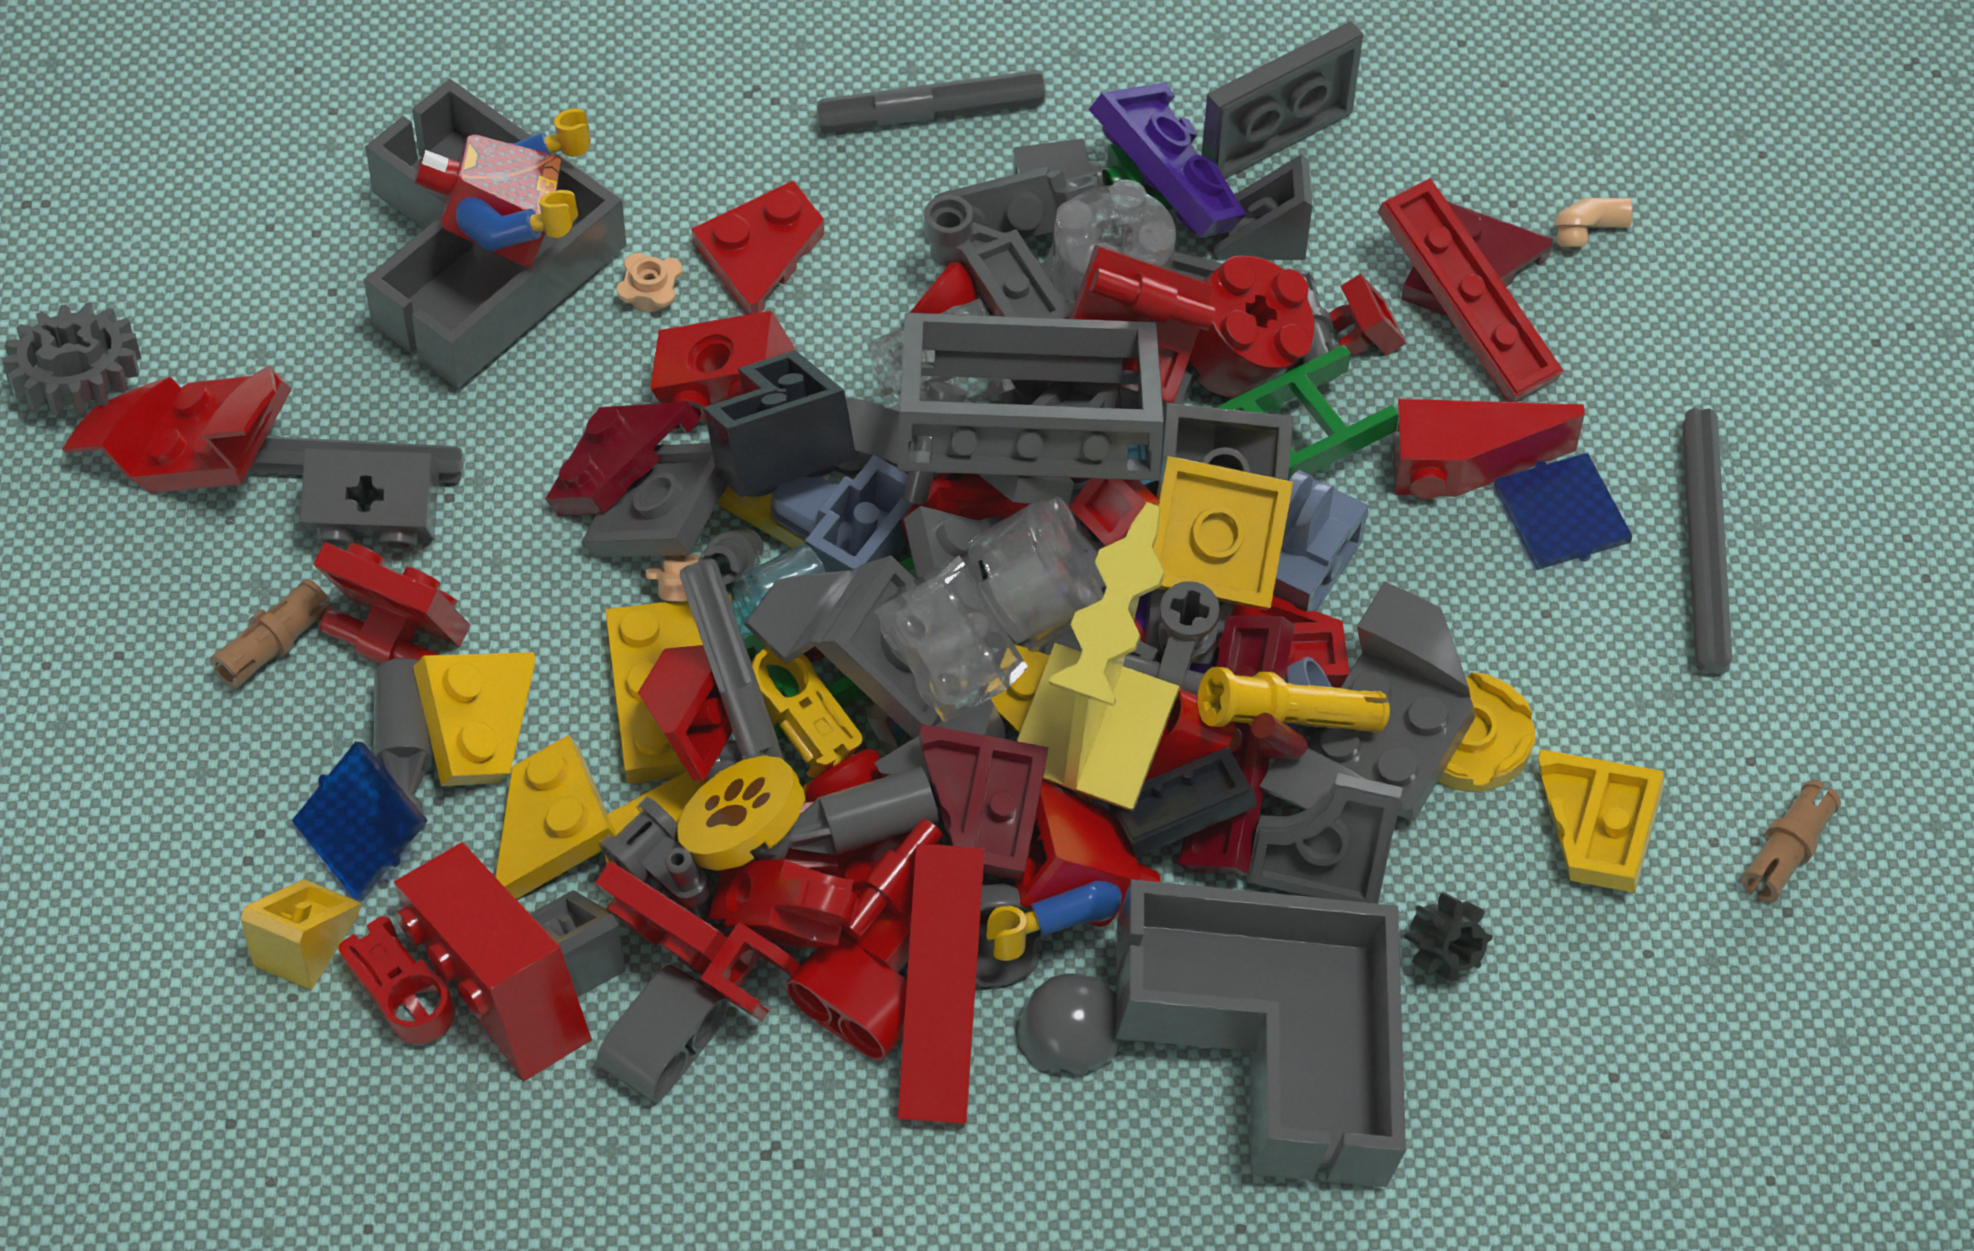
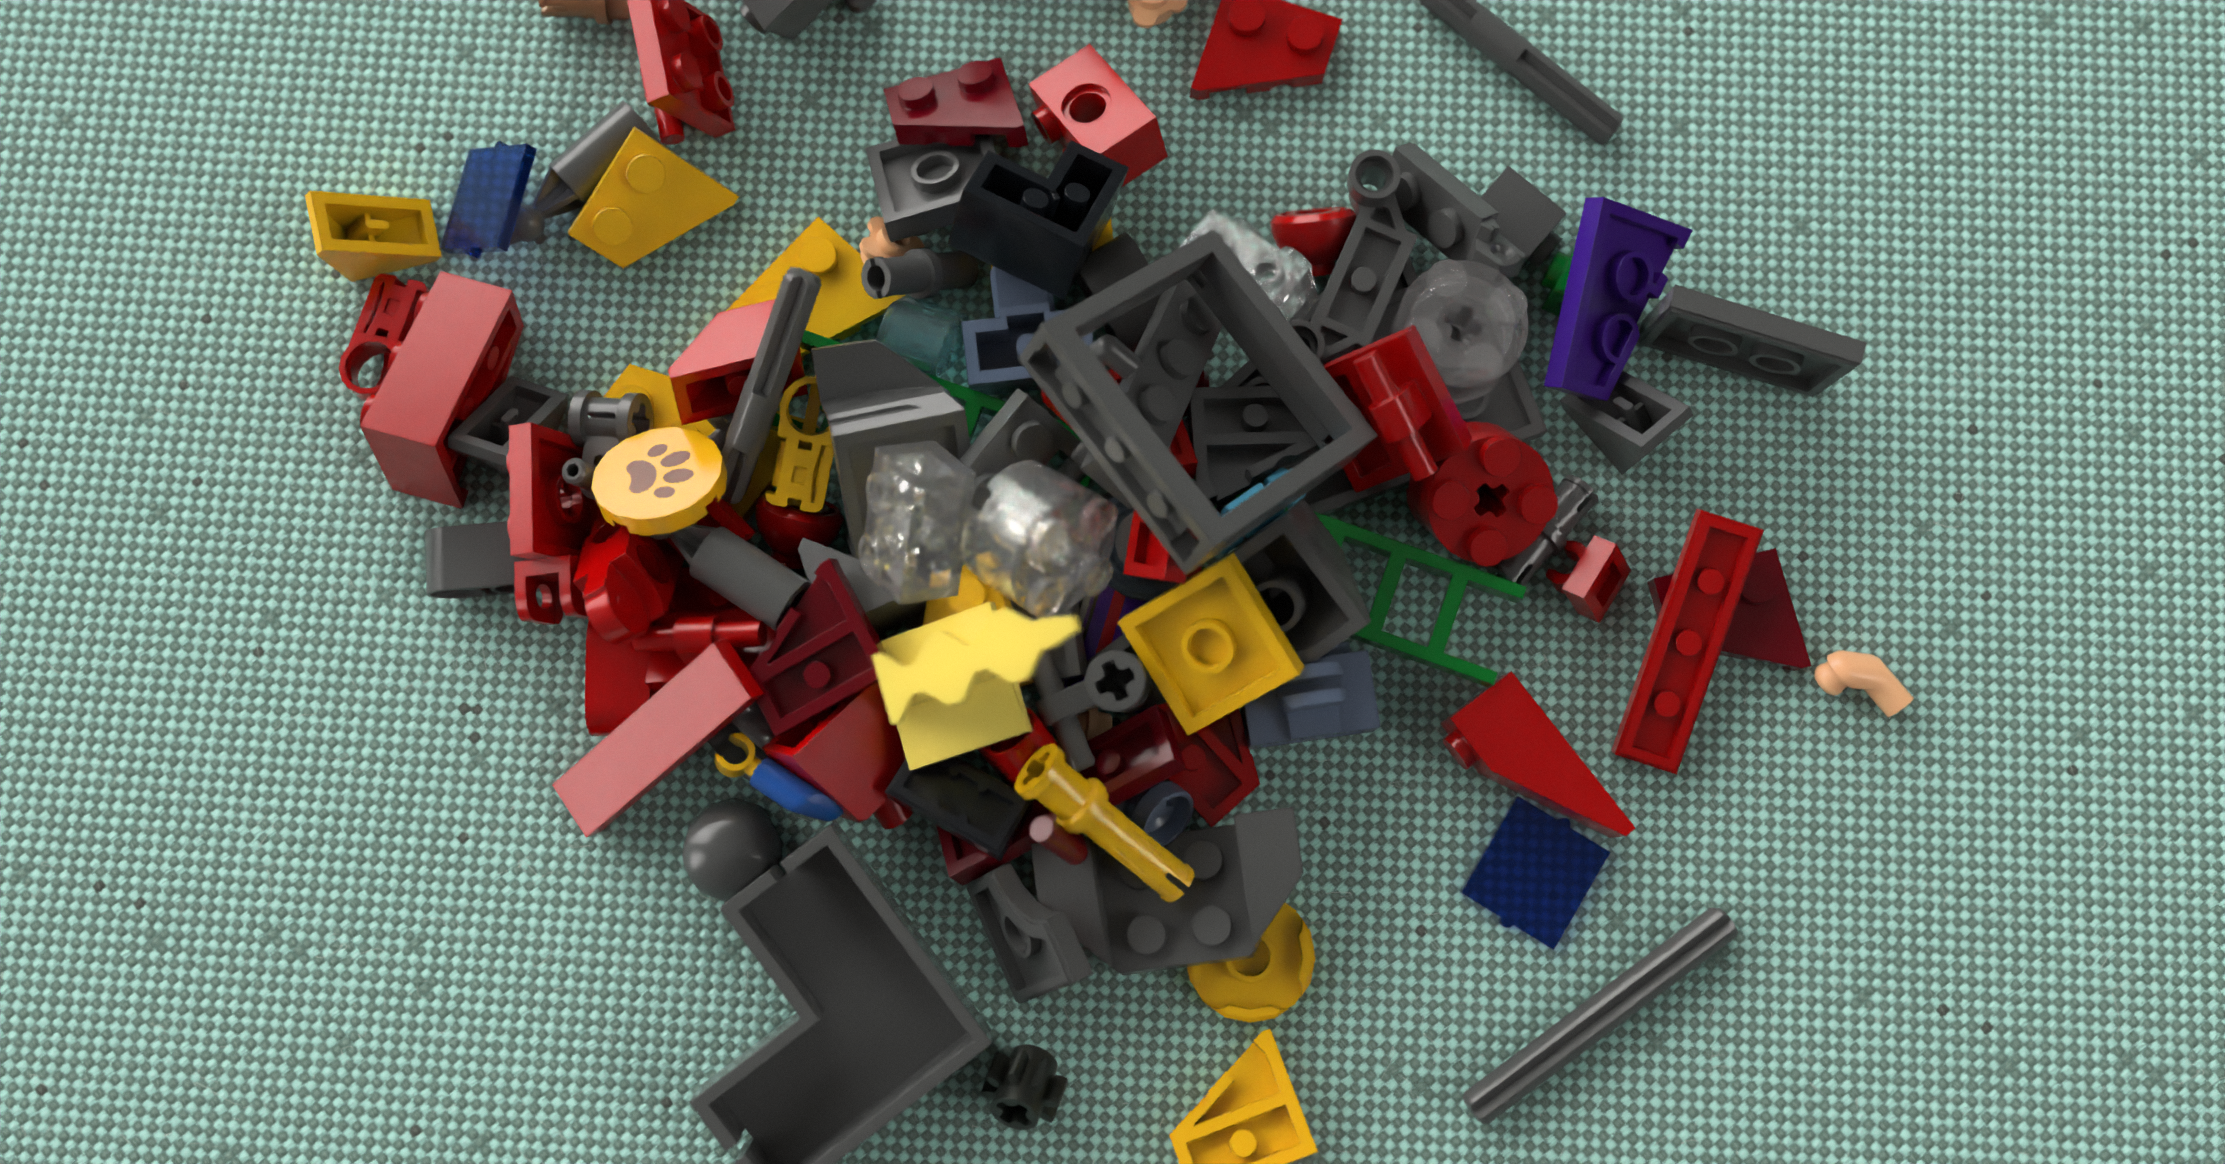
camera: 55 degrees right, 25 degrees up
(550, 818) = (605, 330): yellow wing -> none

